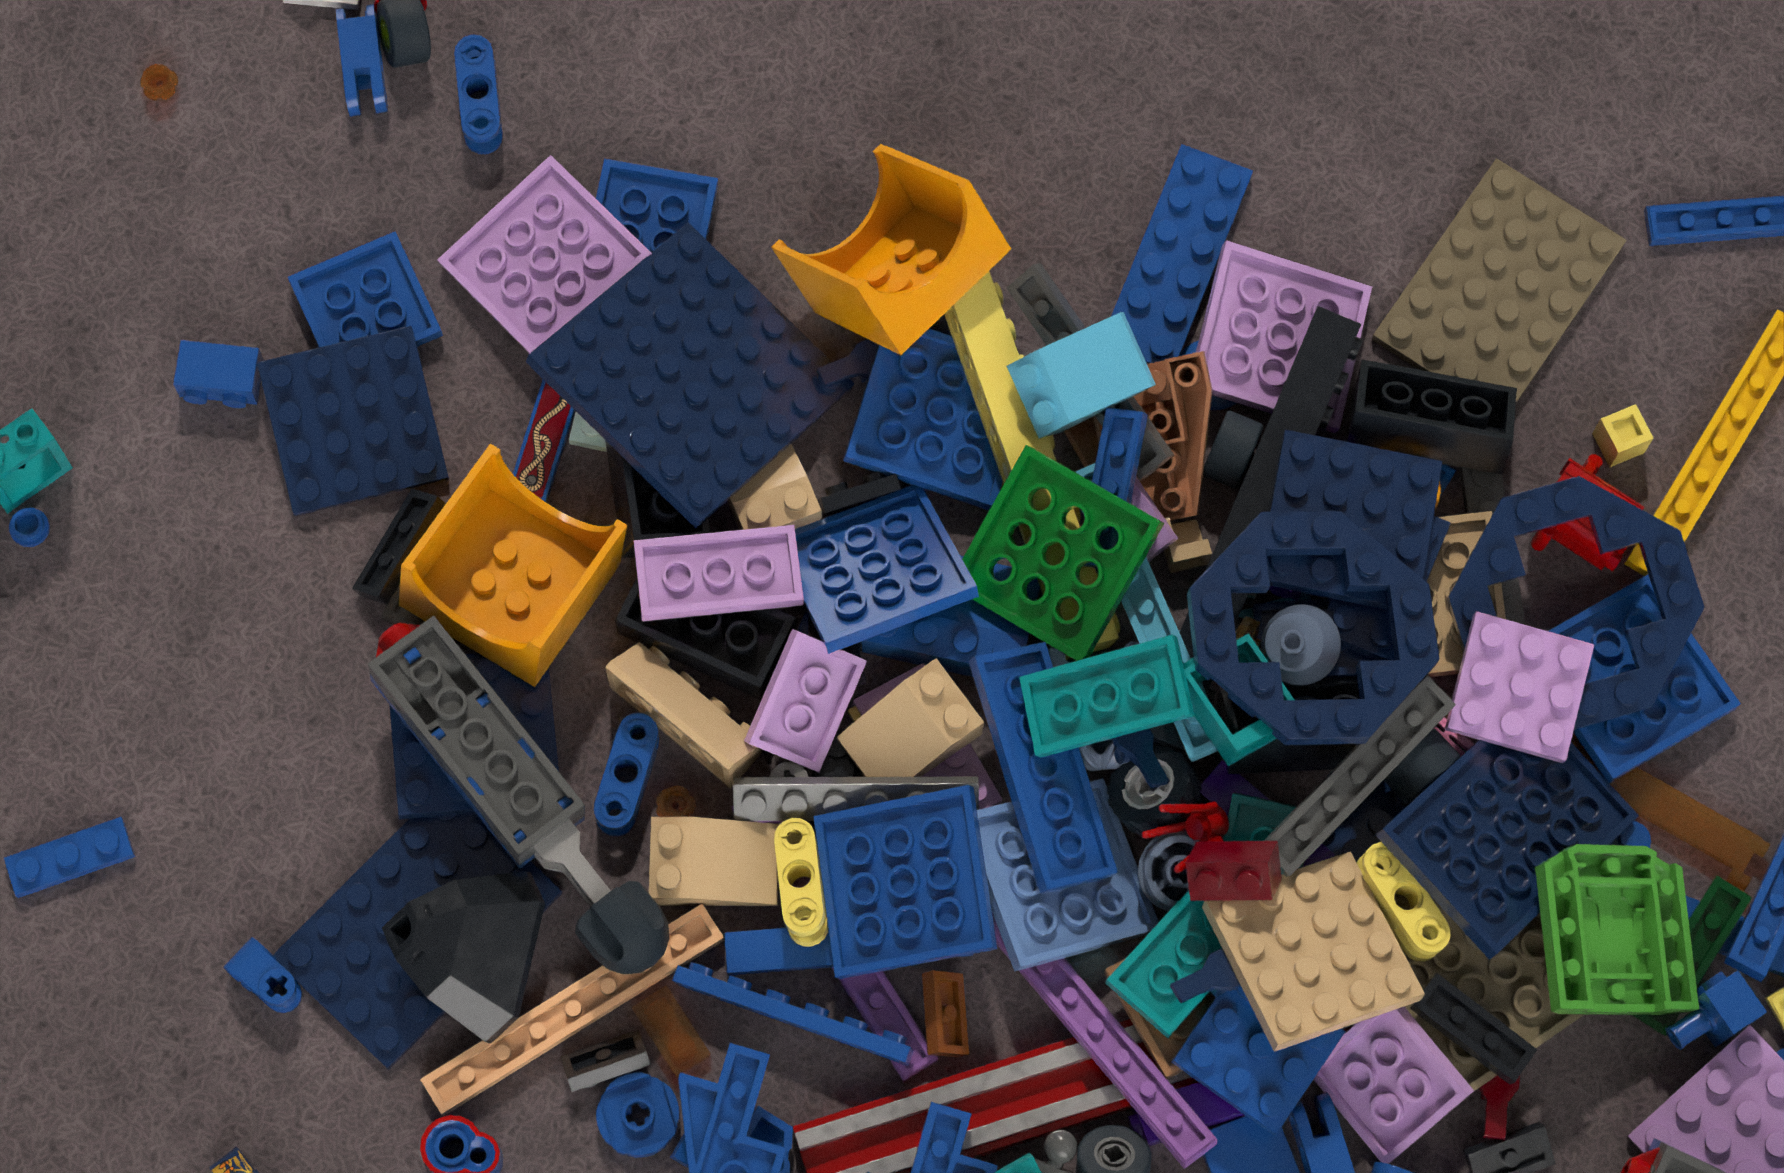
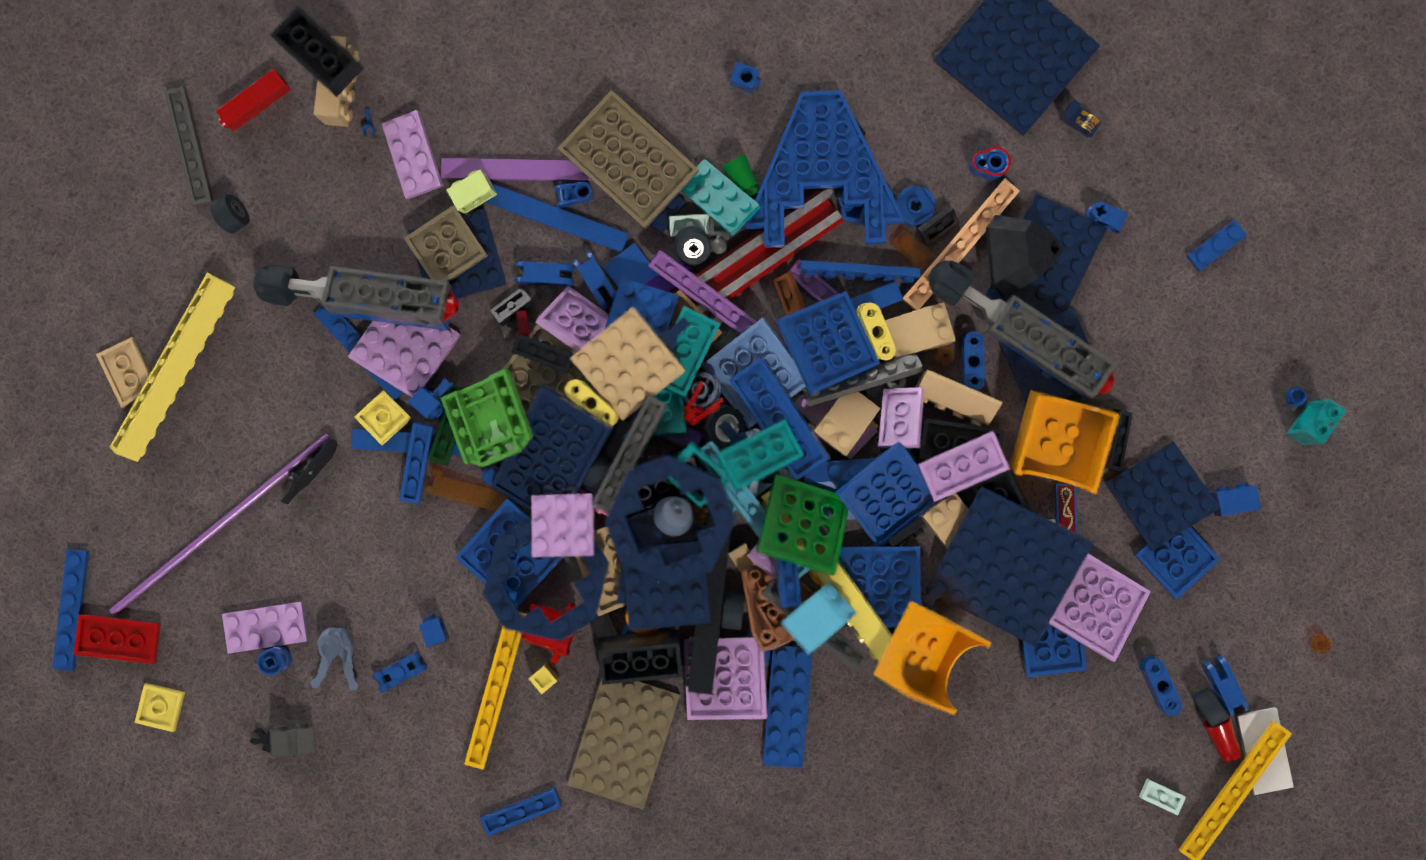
camera: 165 degrees right, 15 degrees up
(1233, 870) = (675, 388): dark red brick -> none

